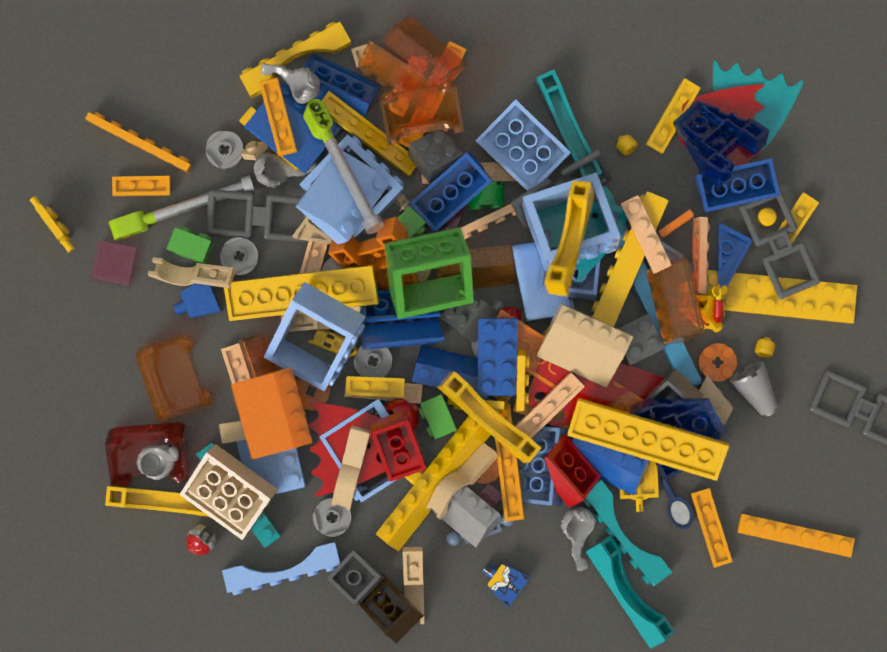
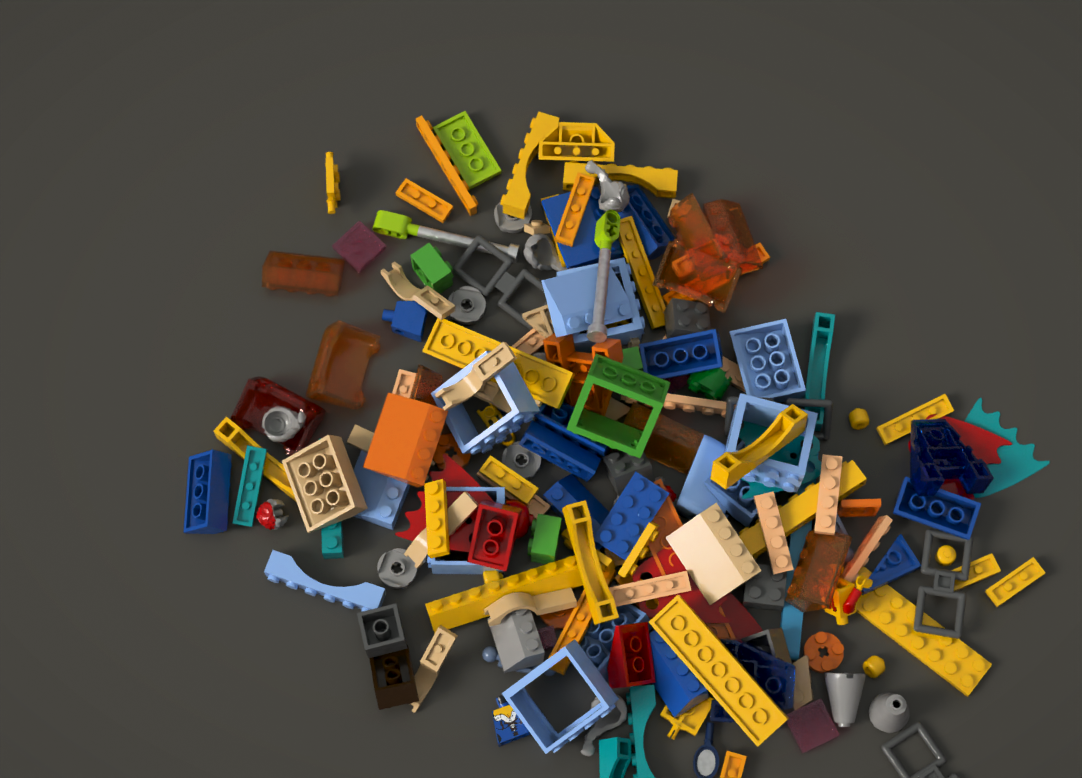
camera: 30 degrees right, 15 degrees down
(82, 317) = (303, 273): none -> clear orange slope
(134, 556) = (207, 493): none -> blue slope
(147, 116) = (467, 150): none -> lime plate
(166, 529) = (249, 486): none -> teal plate
(202, 60) = (518, 196): none -> yellow arch
(239, 53) = (576, 143): none -> yellow wedge
(298, 326) = (479, 375): none -> tan piece
(342, 464) = (436, 518): none -> yellow plate
(523, 569) = (536, 721): none -> light blue window
(621, 295) = (773, 533): none -> light nougat plate
(745, 429) = (812, 726): none -> clear pink plate
(792, 377) = (889, 712): none -> light grey cone
(835, 204) = (1015, 582): none -> yellow plate

